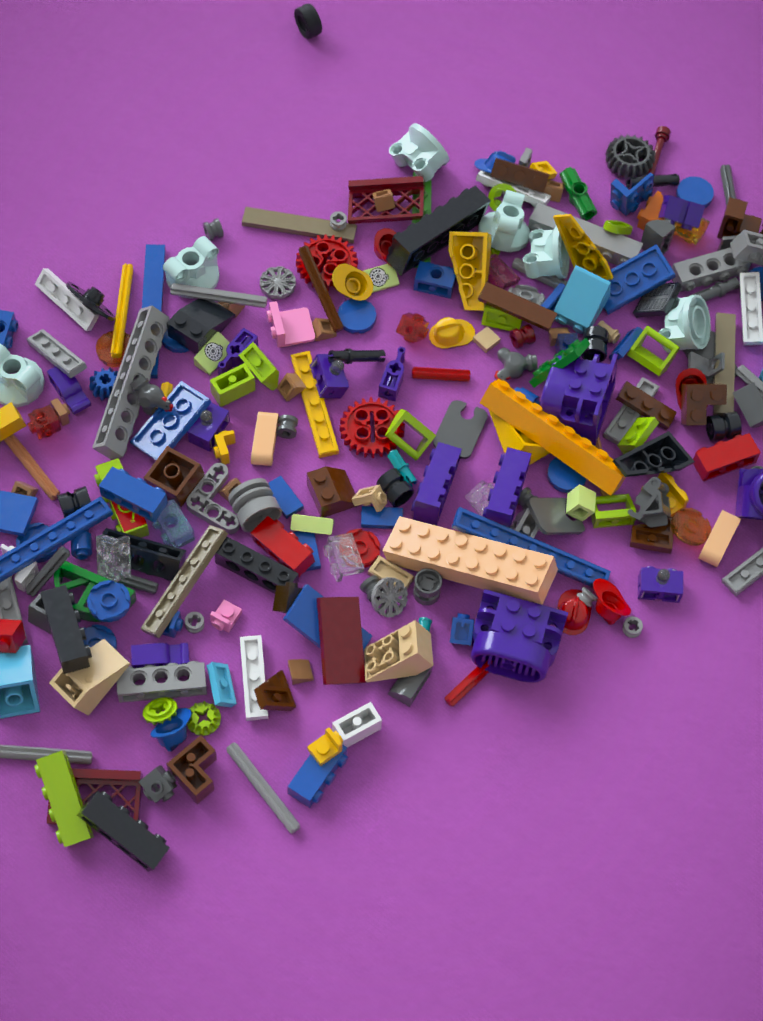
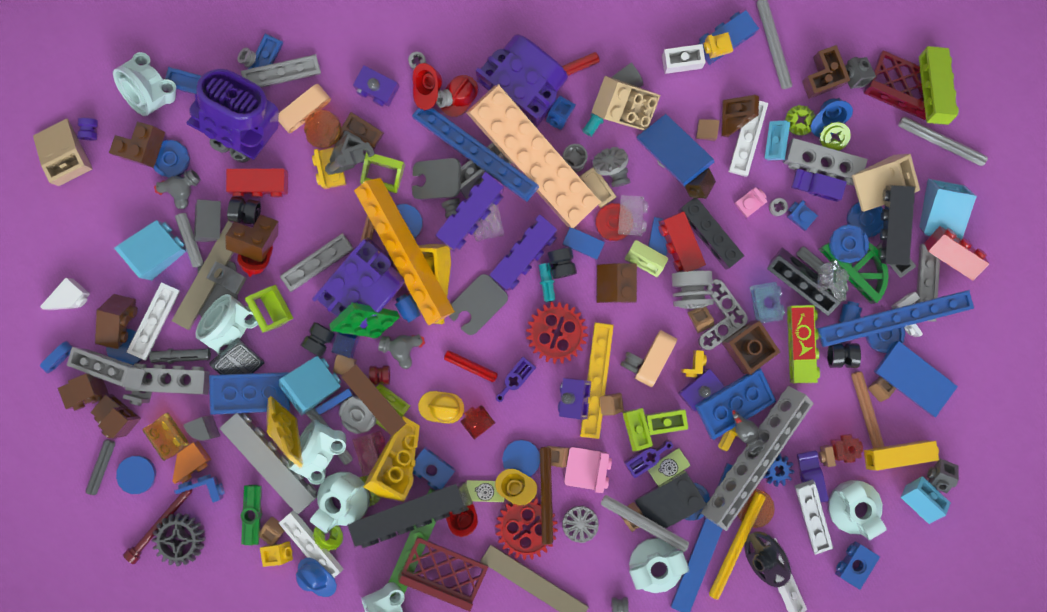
camera: 155 degrees left, 25 degrees up
(47, 571) = (889, 293): dark grey axle -> none
(123, 831) = (901, 40): black brick -> none
(133, 494) = (796, 336): blue brick -> none
(184, 581) = (778, 239): dark tan tile -> none
(286, 497) = (660, 296): blue tile -> none
(341, 216) = (499, 575): light grey bush -> none
(341, 640) = (668, 134): dark red tile -> none
(349, 356) = (551, 409): black pin -> none
(371, 495) = (587, 261): tan bracket -> none
(383, 200) = (446, 573): medium nougat slope -> none
(417, 426) = (520, 315): lime tile -> none
(486, 339) = (413, 387): tan tile -> none
(519, 175) = (300, 553): reddish brown plate -> none
(526, 158) = (284, 574): light grey tile -> none
(581, 502) = (407, 185): yellowish green brick -> none
(614, 335) = (298, 350): tan pin -> none
(618, 227) = (233, 458): lime tile -> none
(626, 343) = (288, 329): blue tile -> none
(637, 433) = (326, 229): lime bracket -> none
(645, 405) = (302, 258): reddish brown plate -> none
(654, 457) = (326, 194): black wedge -> none
(659, 180) = (179, 500): black pin -> none
(681, 212) = (166, 444): dark purple piece -> none

